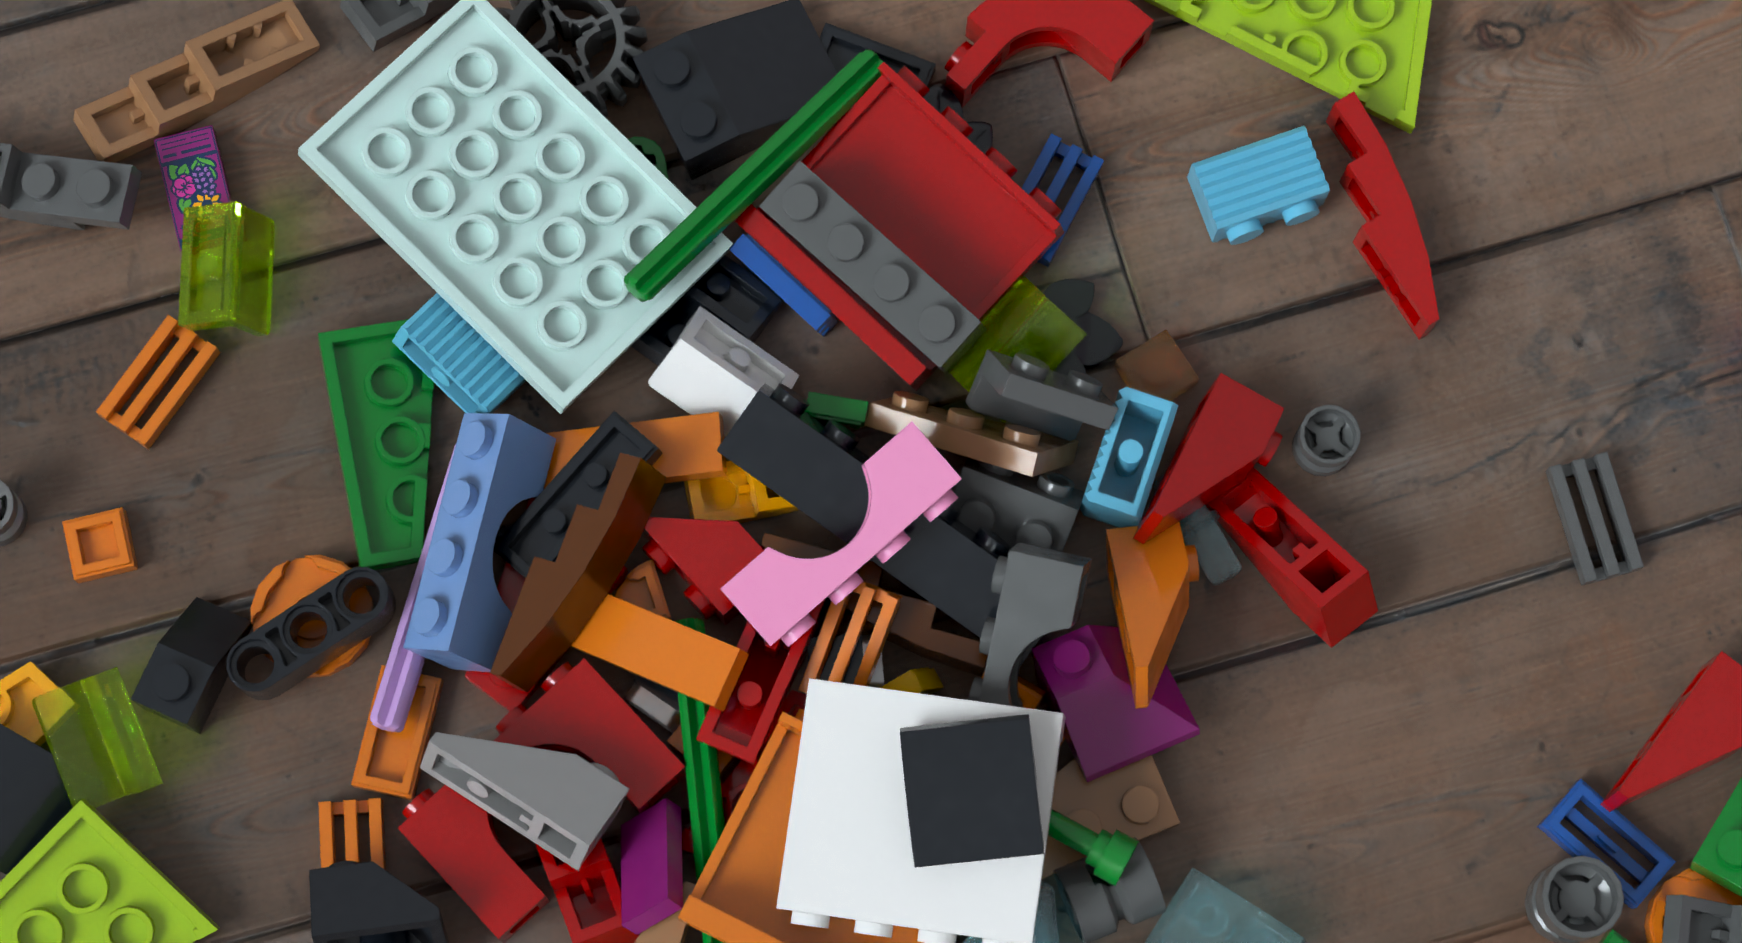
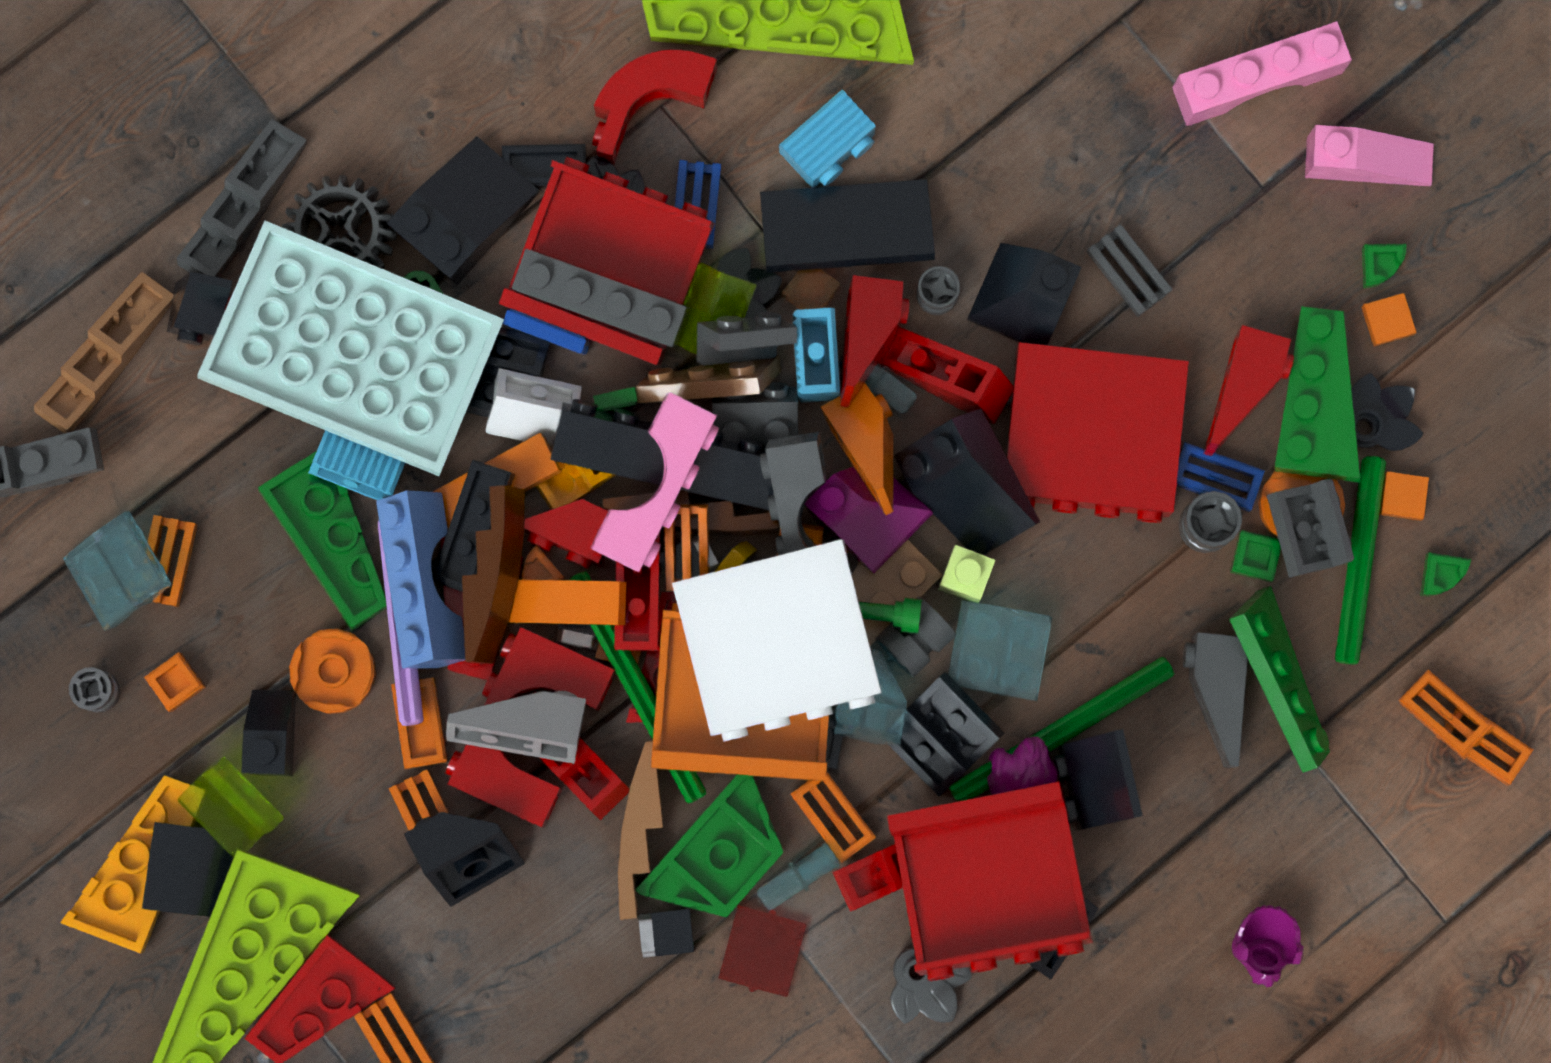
camera: 20 degrees left, 5 degrees up
(87, 367) = (117, 570): none -> clear light blue slope
(192, 172) = (136, 424): tile -> none
(226, 268) = (179, 469): clear neon green panel -> none
(280, 634) = (319, 694): black beam -> none
(340, 66) = (197, 307): none -> black slope
(651, 866) = (619, 741): magenta tile -> none
(753, 177) = (499, 269): green axle -> none
(971, 790) = (804, 612): black slope -> none
(1212, 835) = (966, 574): none -> yellowish green brick
(1239, 307) = (847, 226): none -> black tile
(1265, 712) = (968, 483): none -> black slope
(1392, 235) = (927, 138): red slope -> none
(1440, 493) = (1024, 293): none -> black slope
(1464, 715) = (1097, 430): none -> red panel

